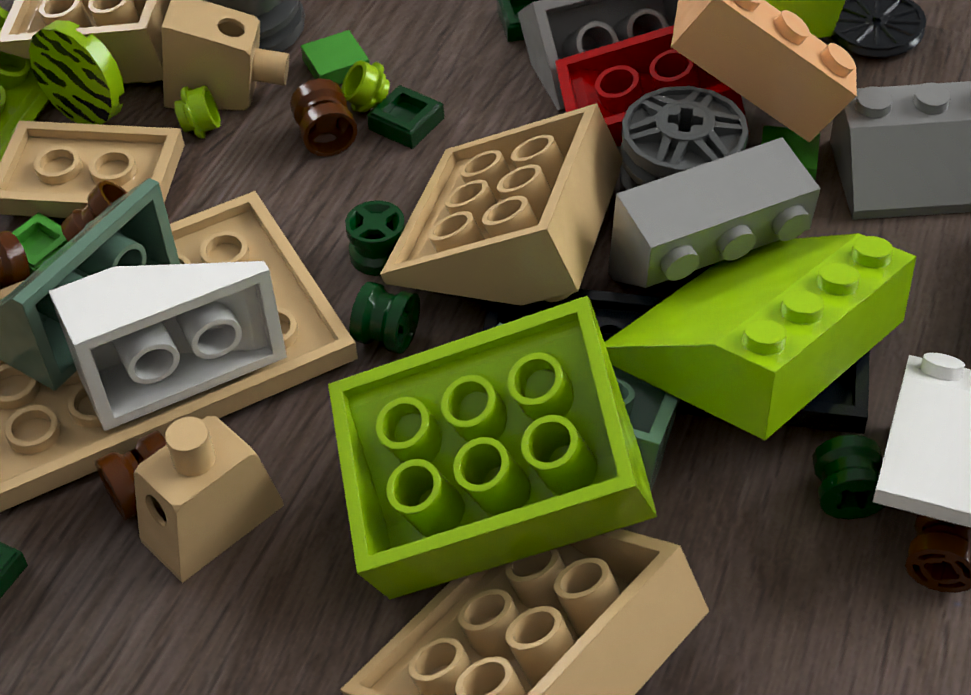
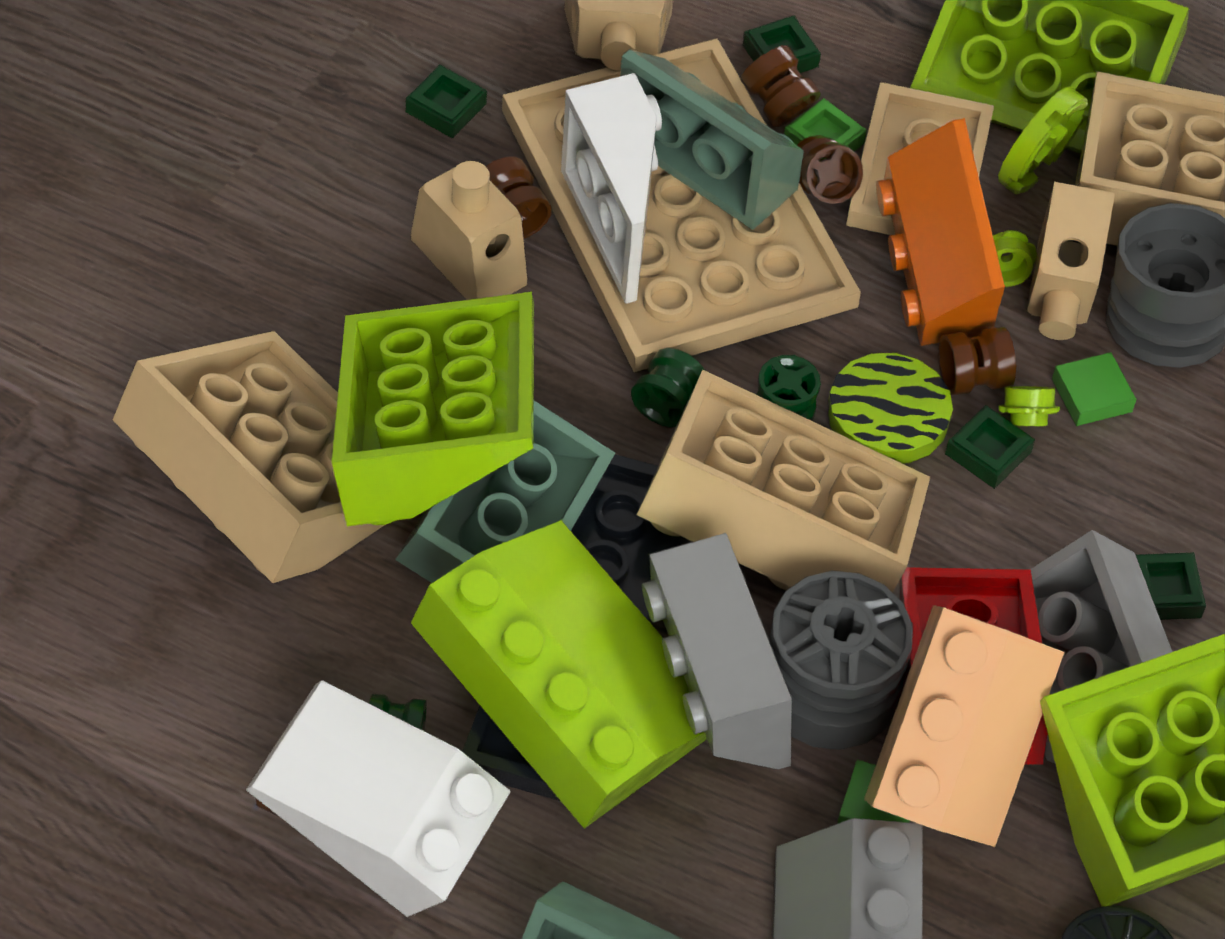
camera: 90 degrees right, 5 degrees up
(207, 108) = (941, 235): none -> orange slope
(374, 169) = (891, 405): none -> lime tile

